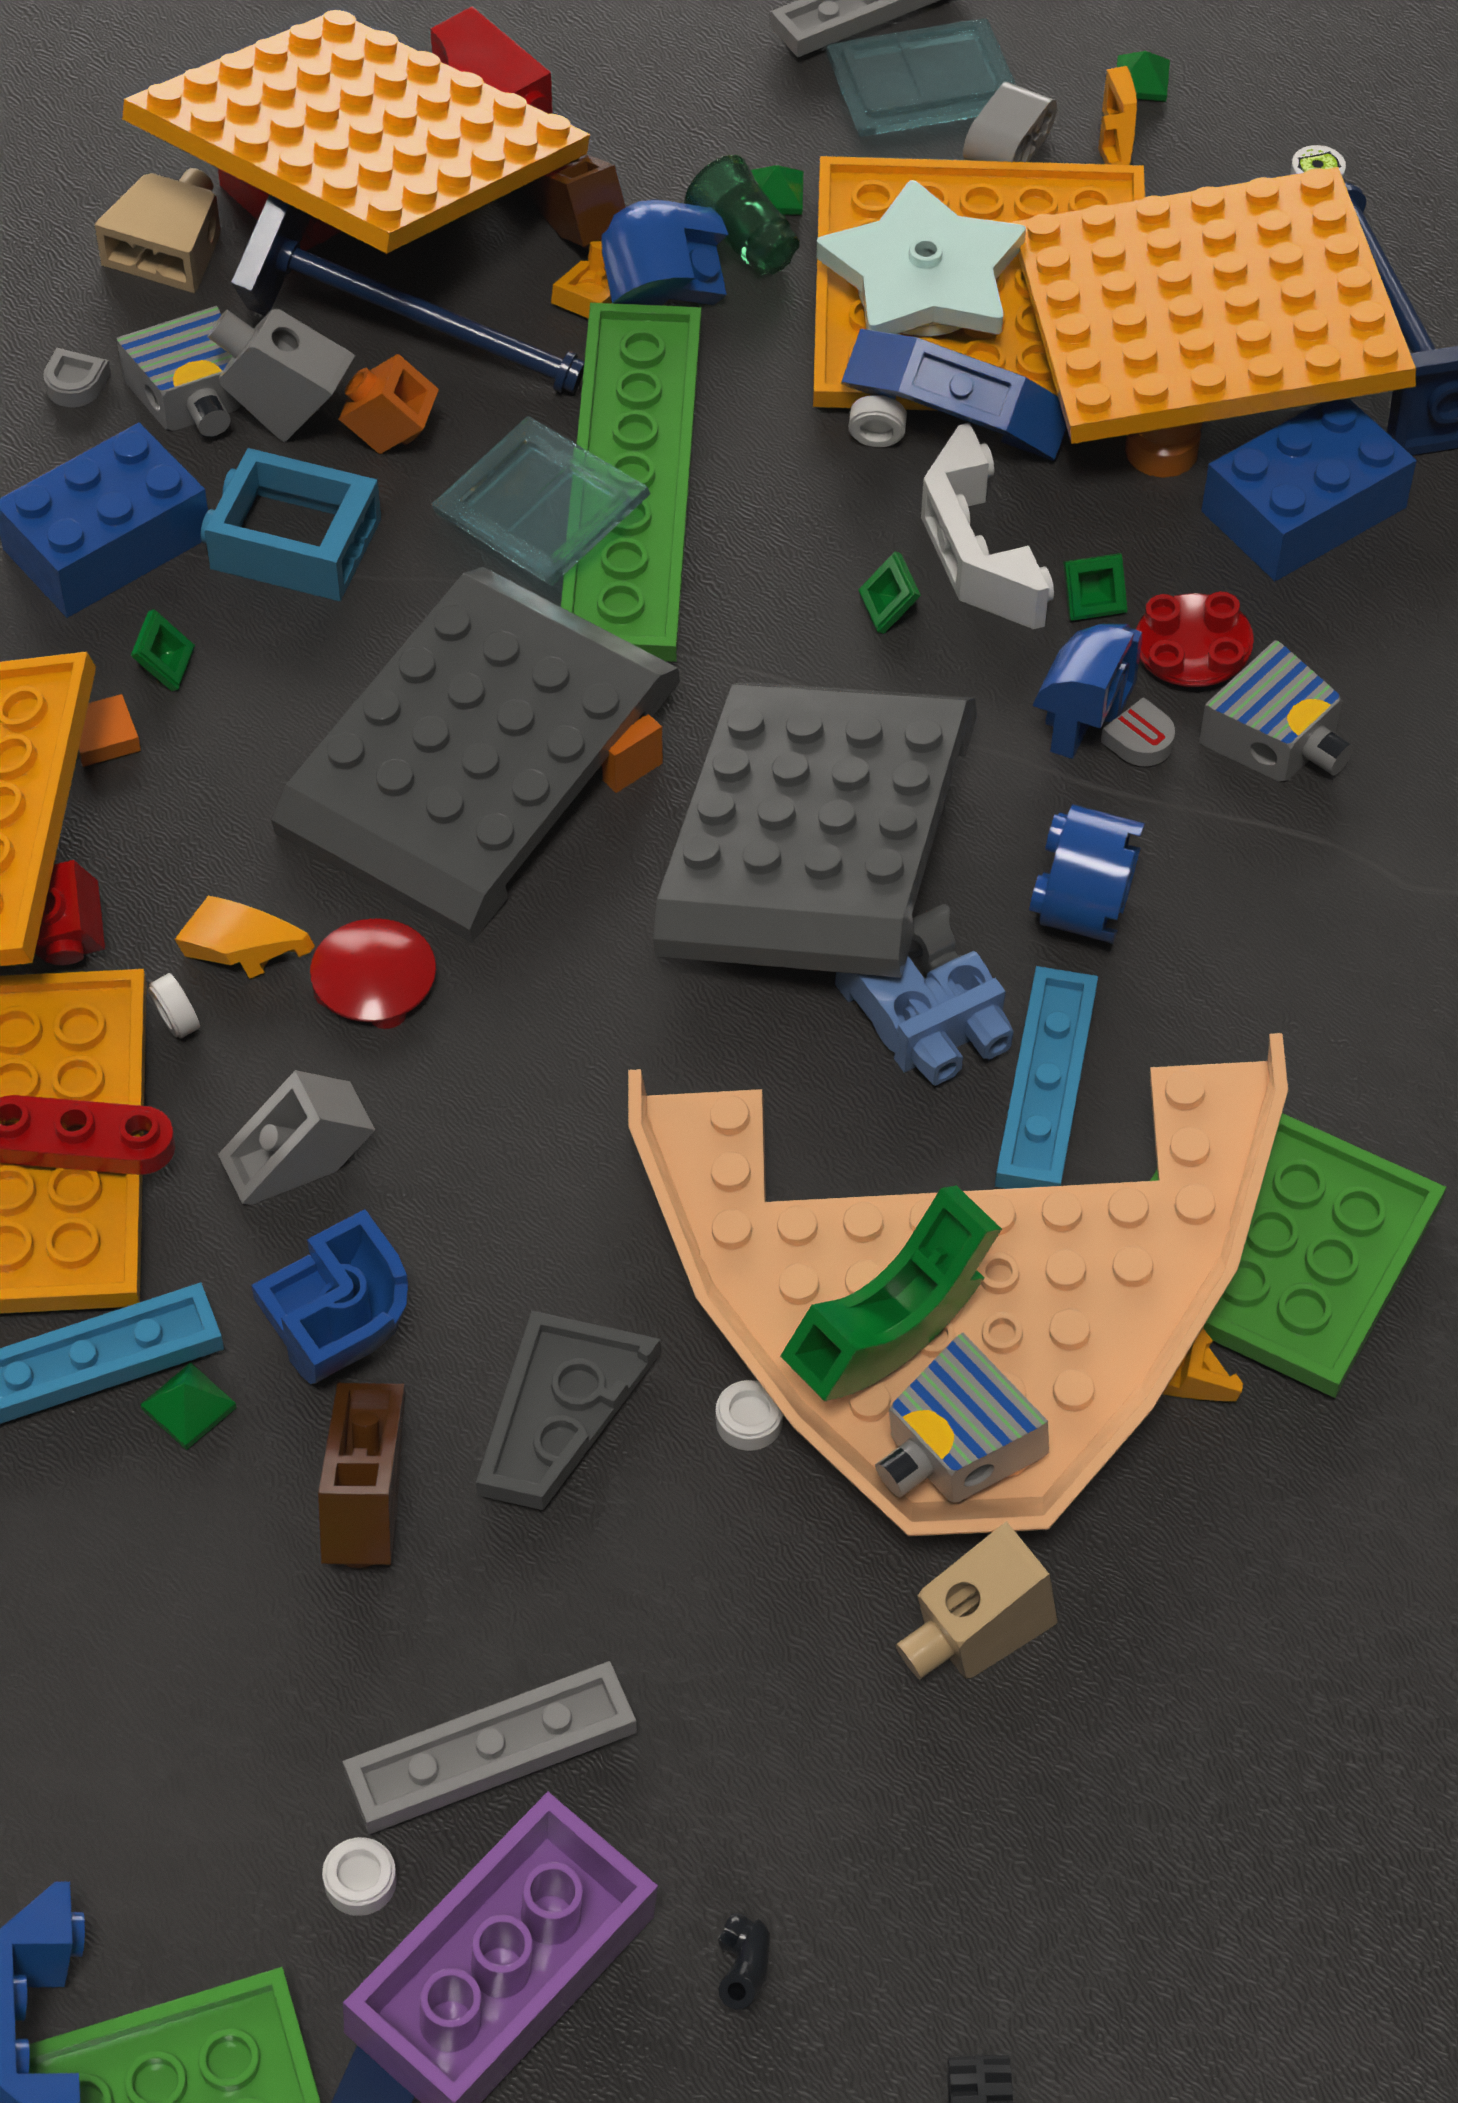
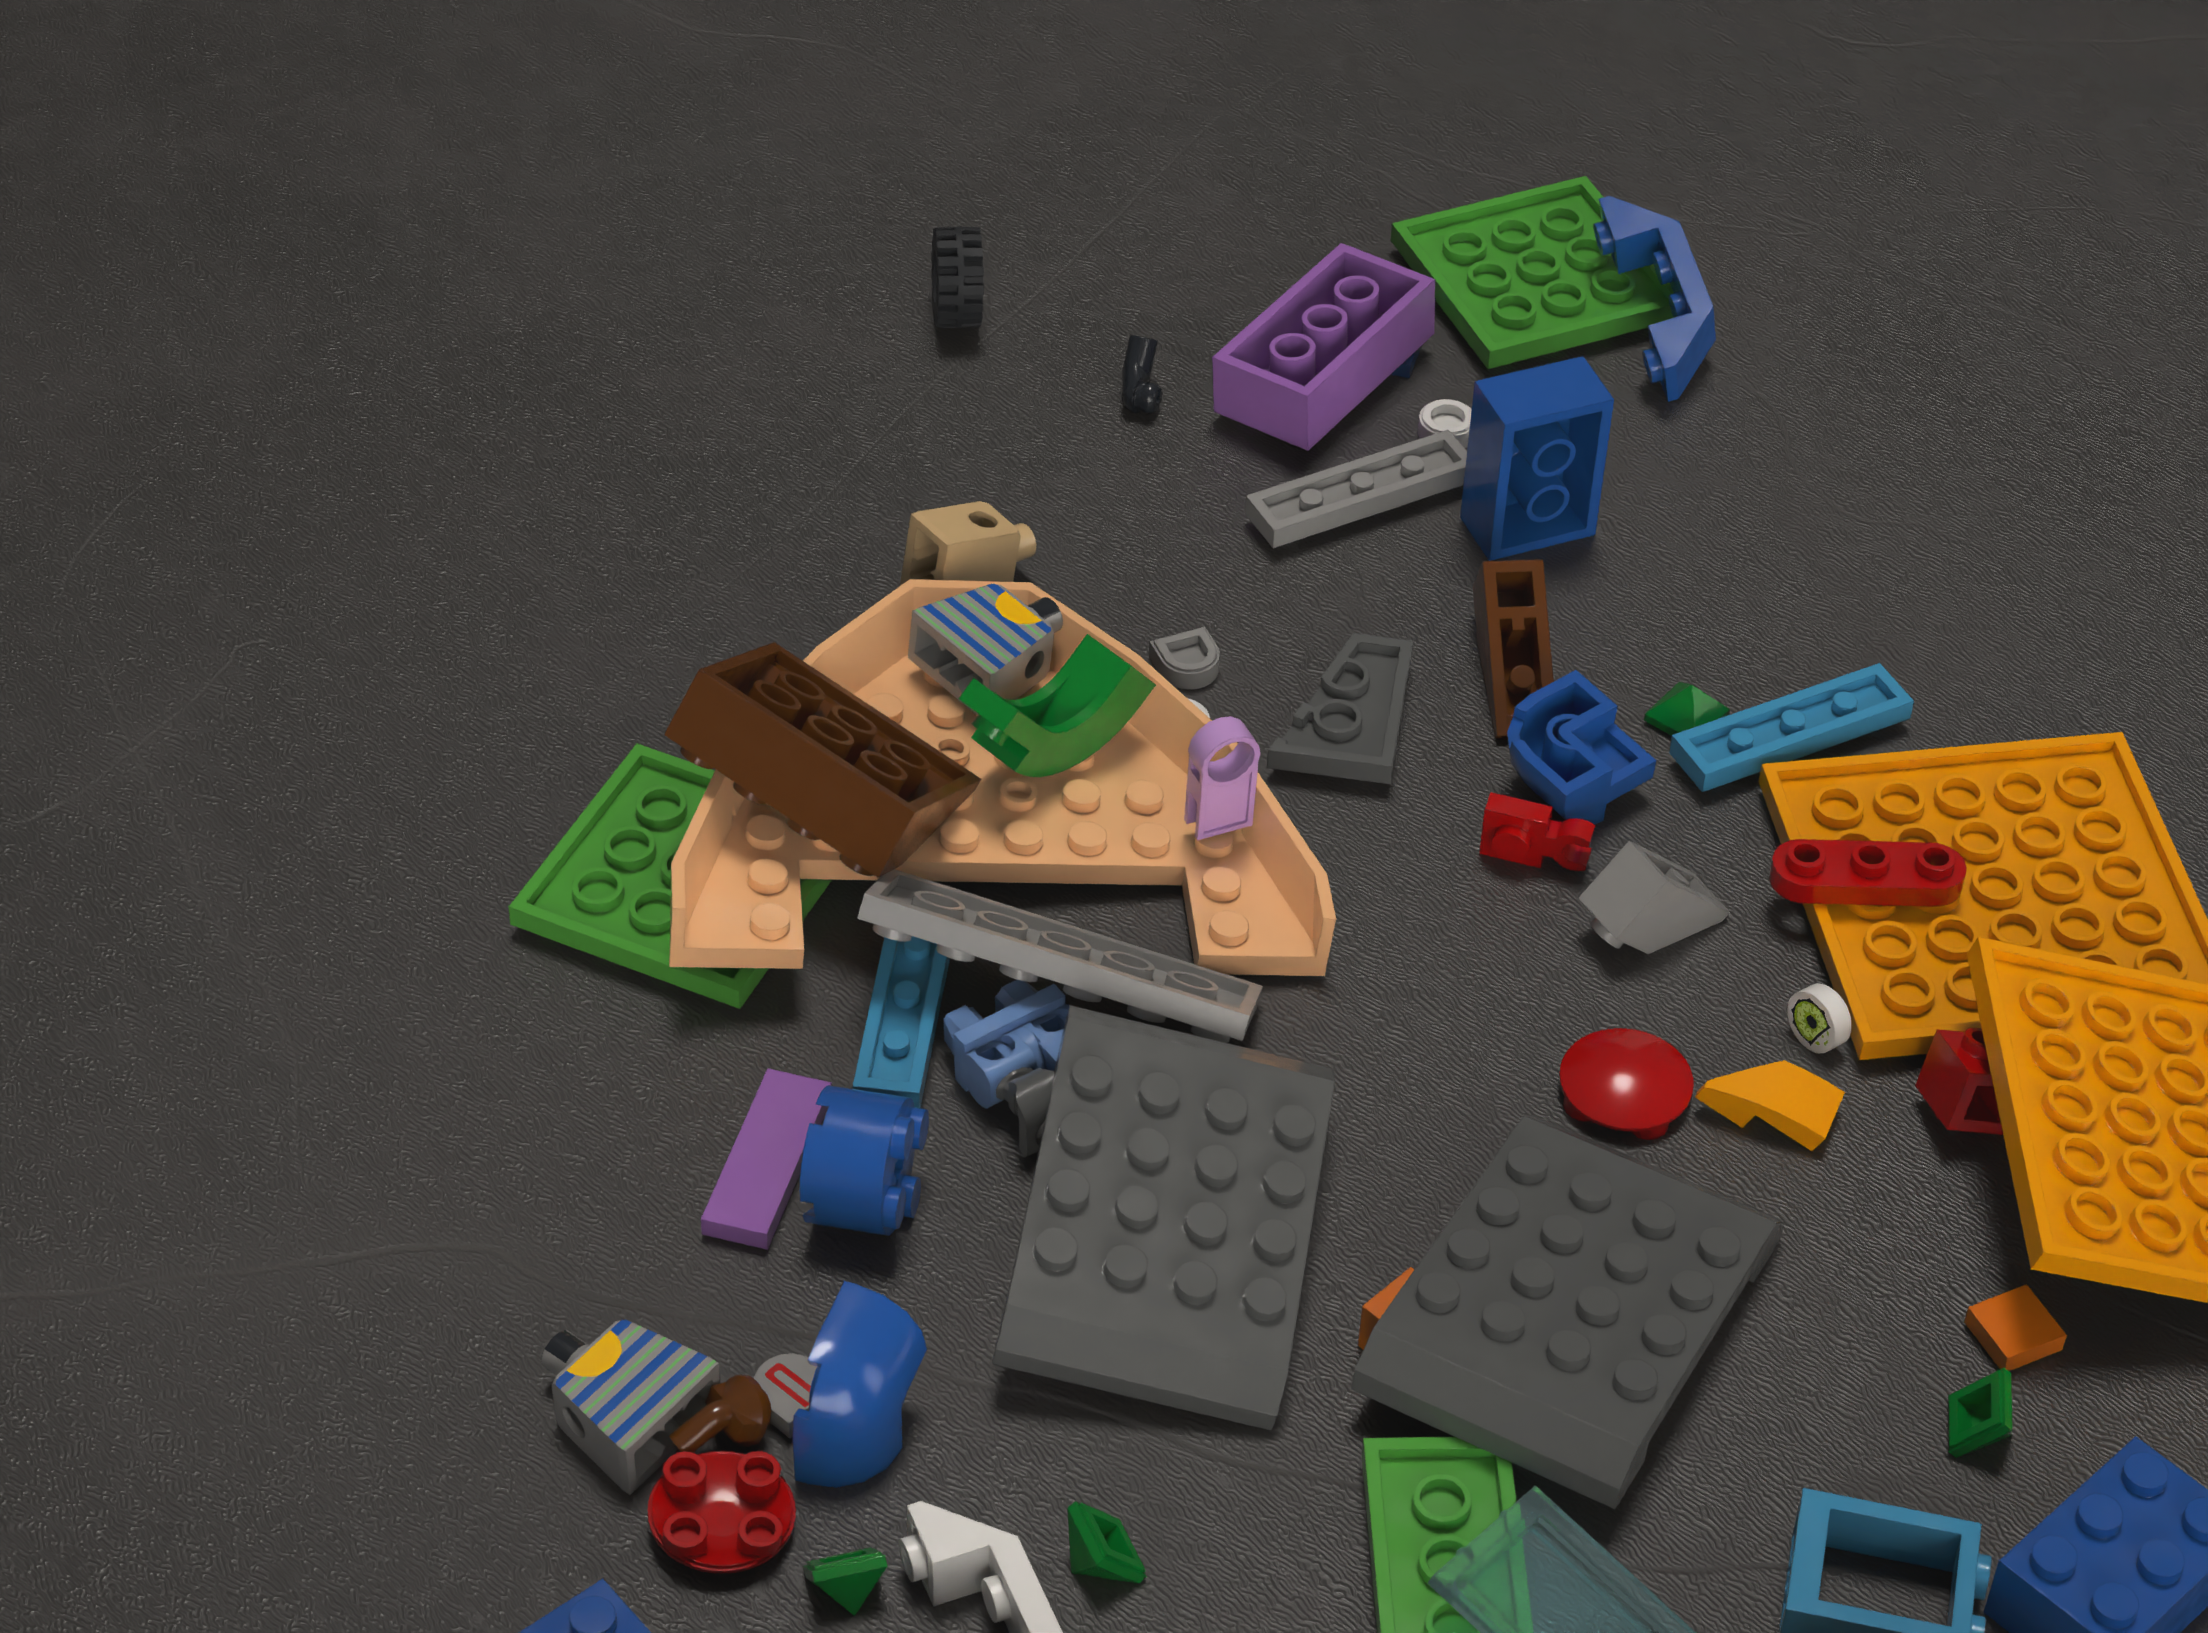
camera: 175 degrees right, 10 degrees down
(286, 1665) = (1536, 457): none -> blue brick
(411, 1227) = (1526, 834): none -> red plate
(725, 1202) = (1224, 790): none -> lavender piece
(730, 1510) = (1186, 658): none -> light grey tile
(902, 1060) = (1046, 948): none -> light grey plate
(1139, 1224) = (819, 757): none -> reddish brown slope
(1172, 941) = (764, 1160): none -> medium lavender tile
(1187, 699) = (732, 1406): none -> reddish brown plate

